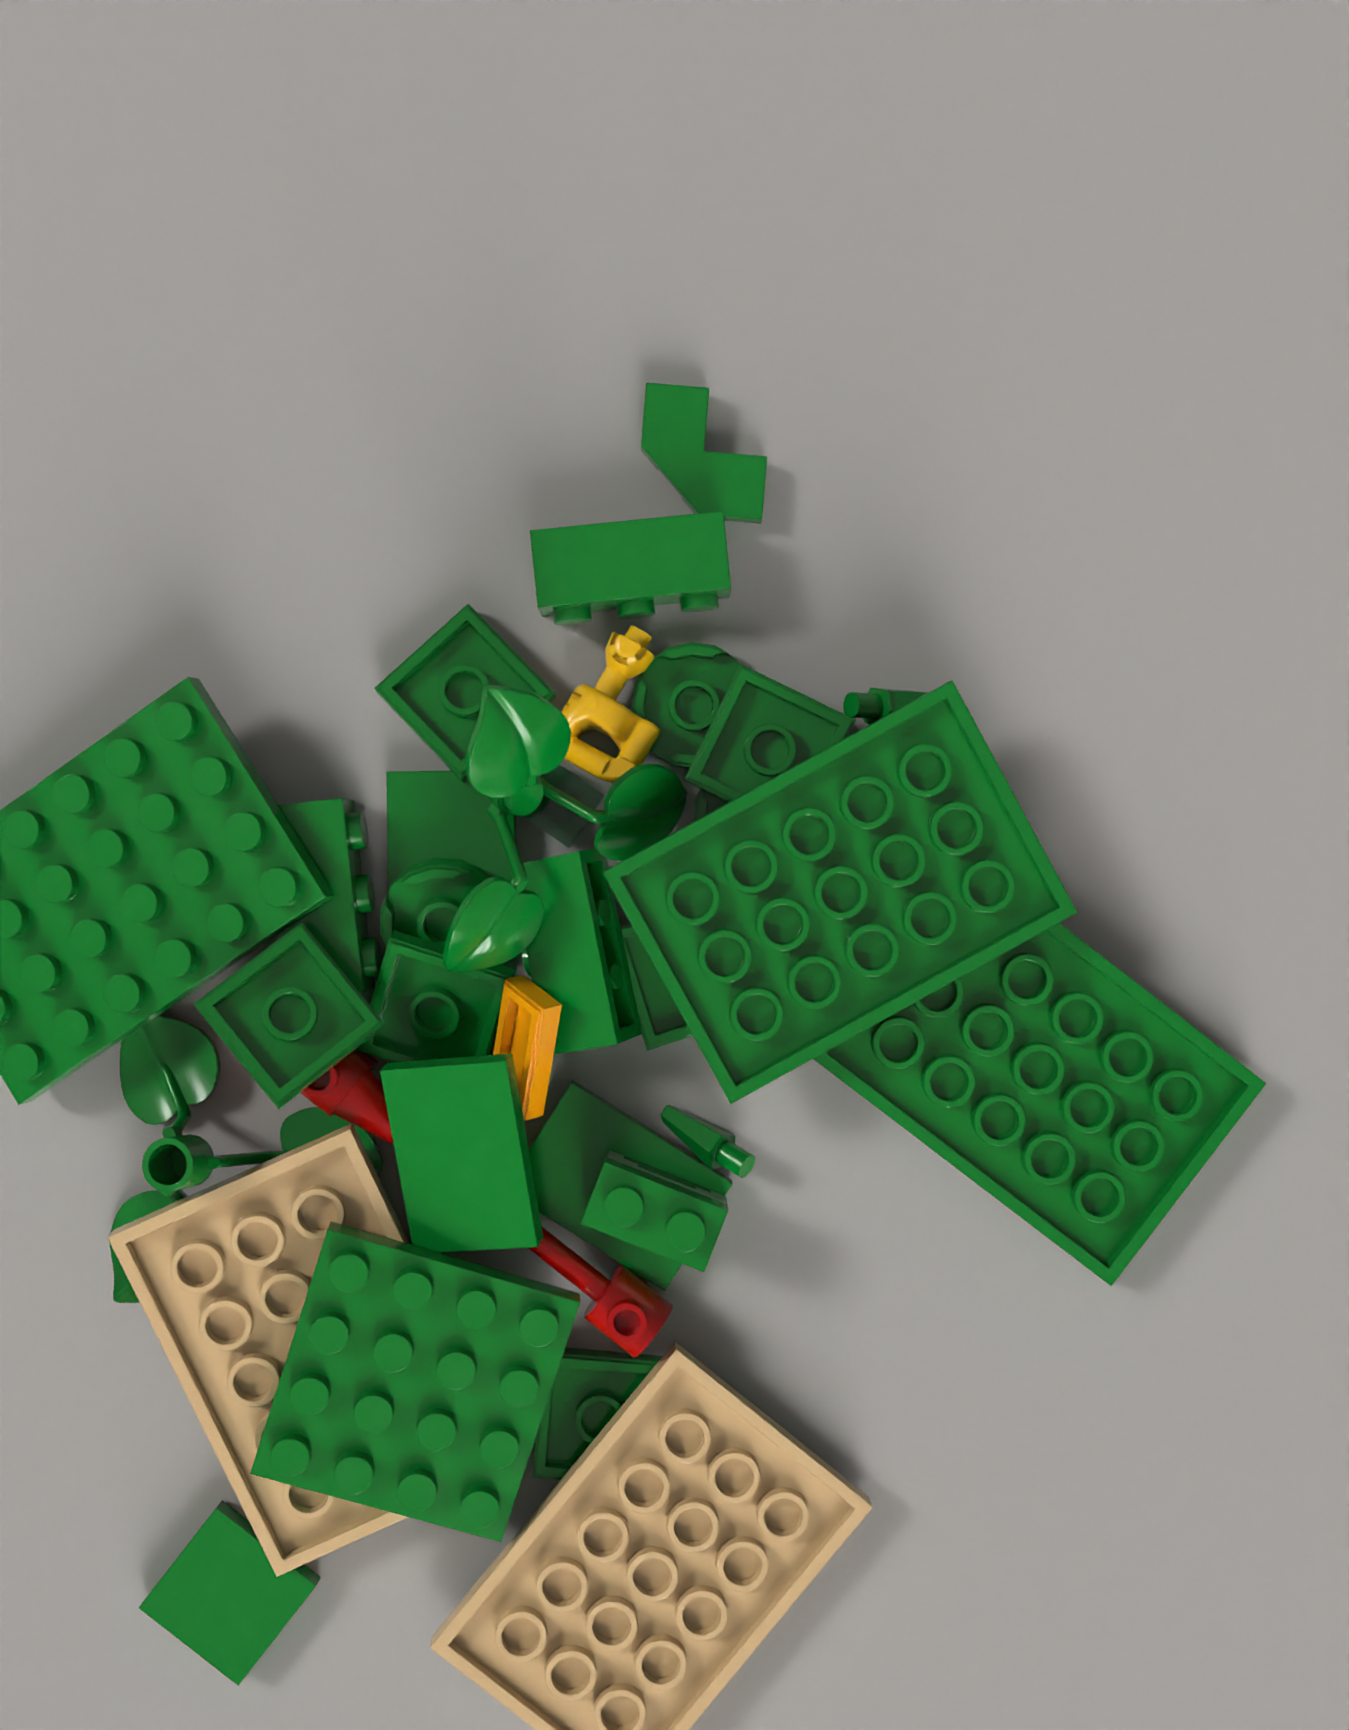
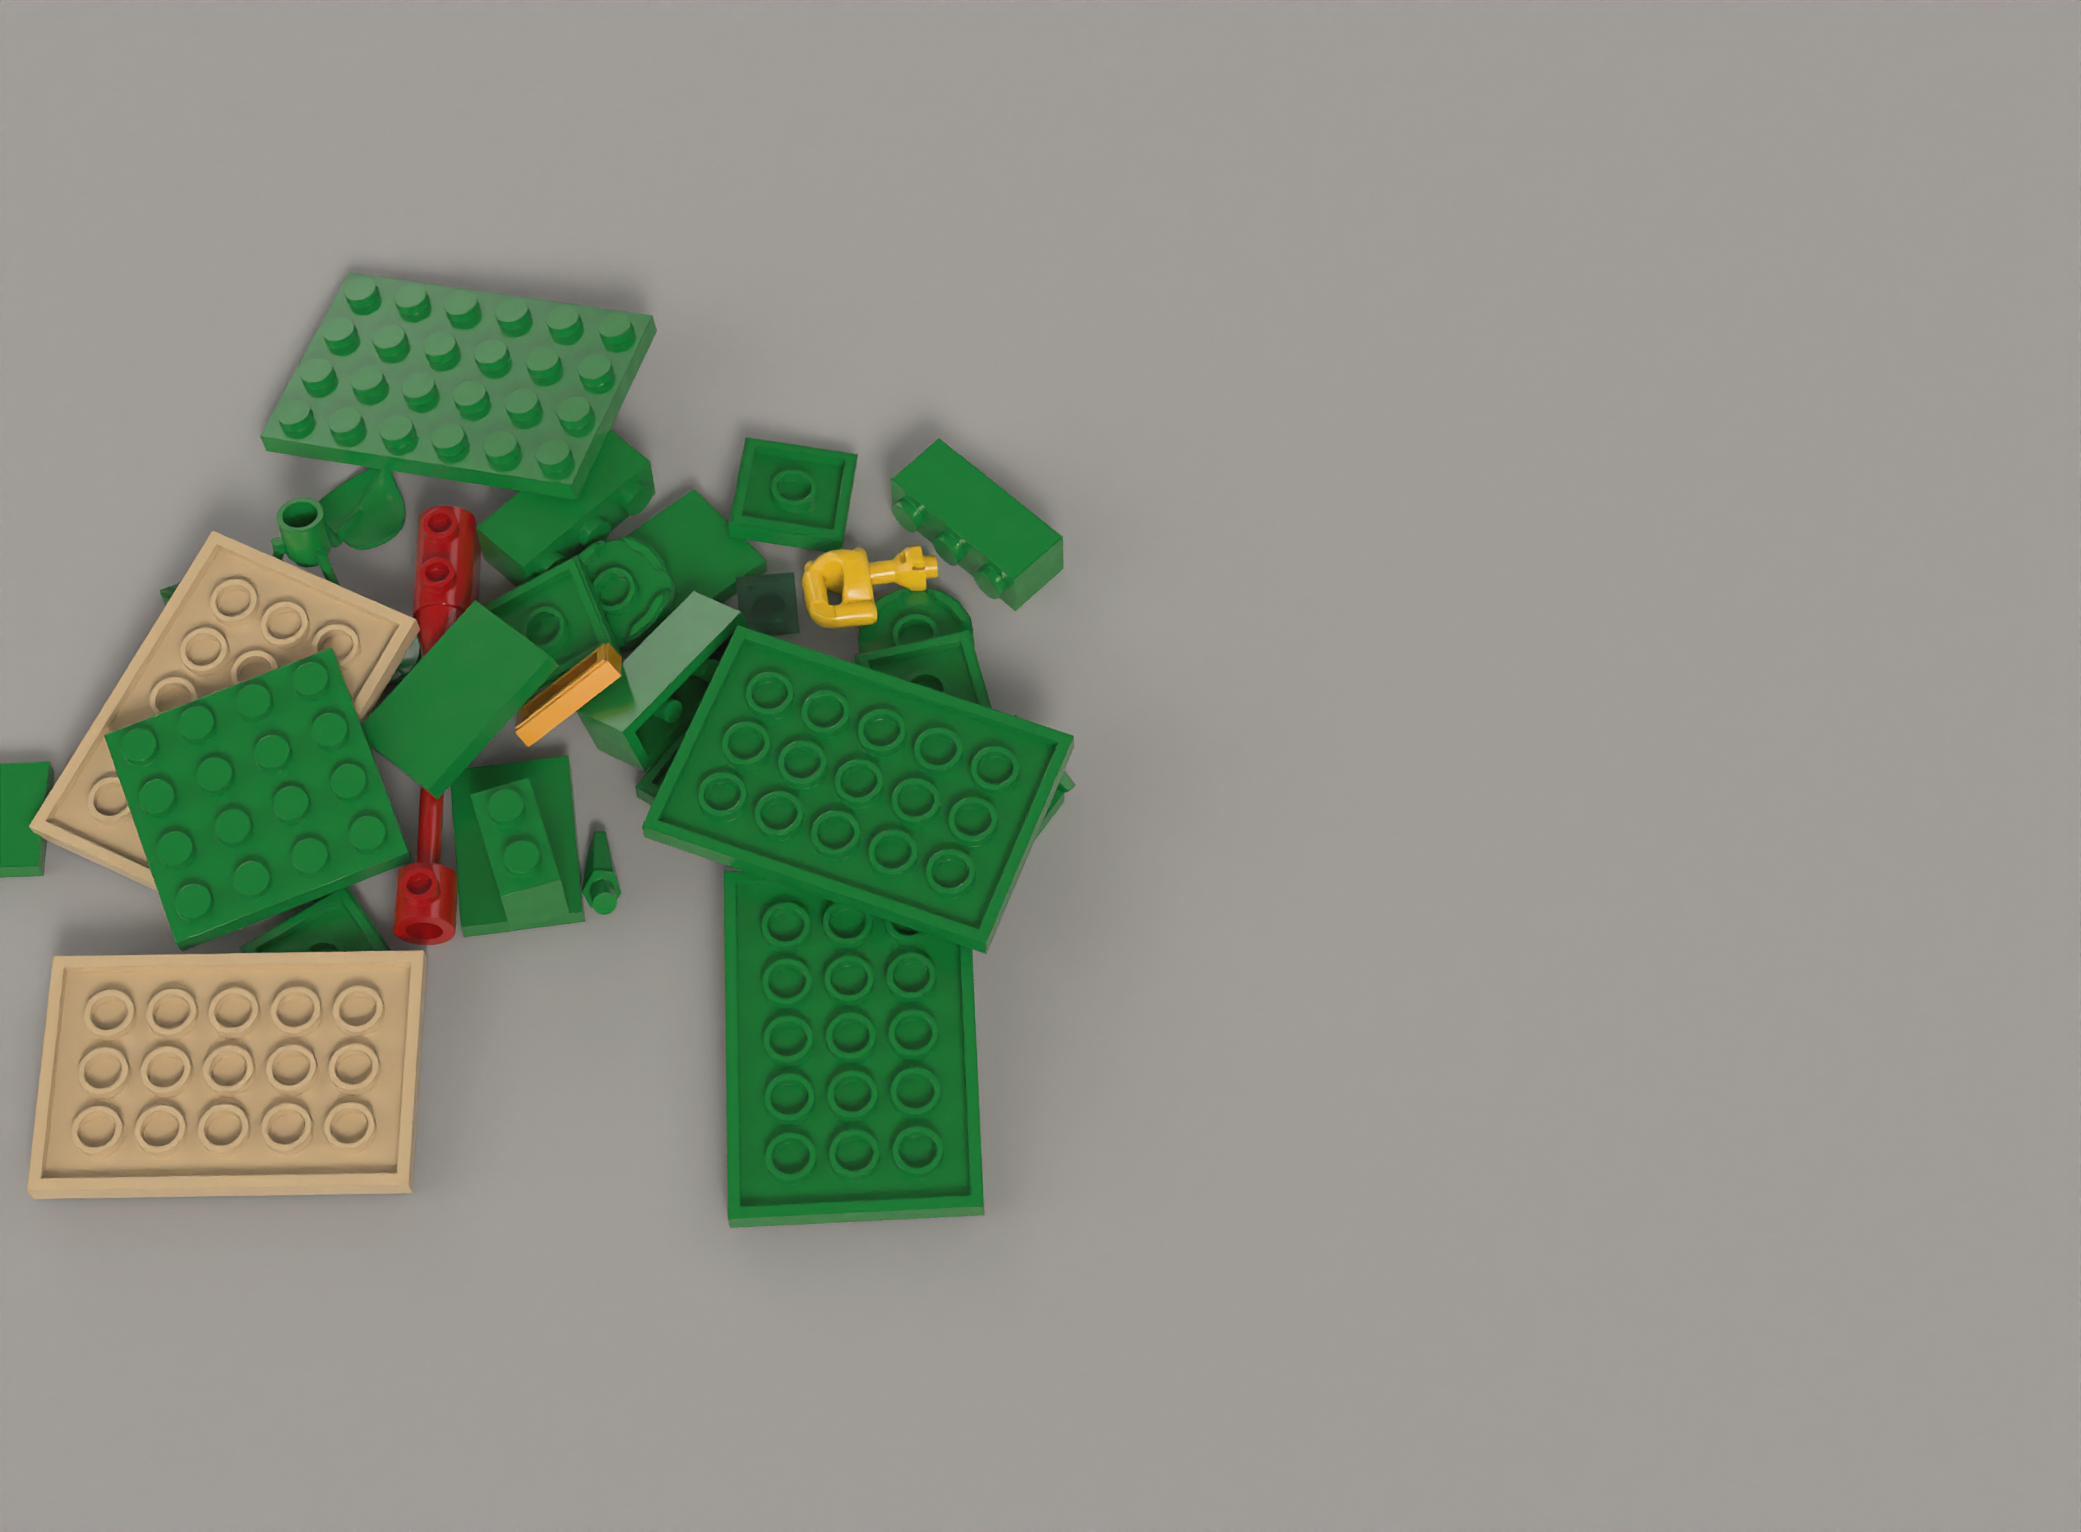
camera: 50 degrees right, 30 degrees down
(289, 1015) = (467, 523): green tile -> none
(509, 749) = (774, 490): green plant -> none
(705, 479) = (1088, 498): green tile -> none

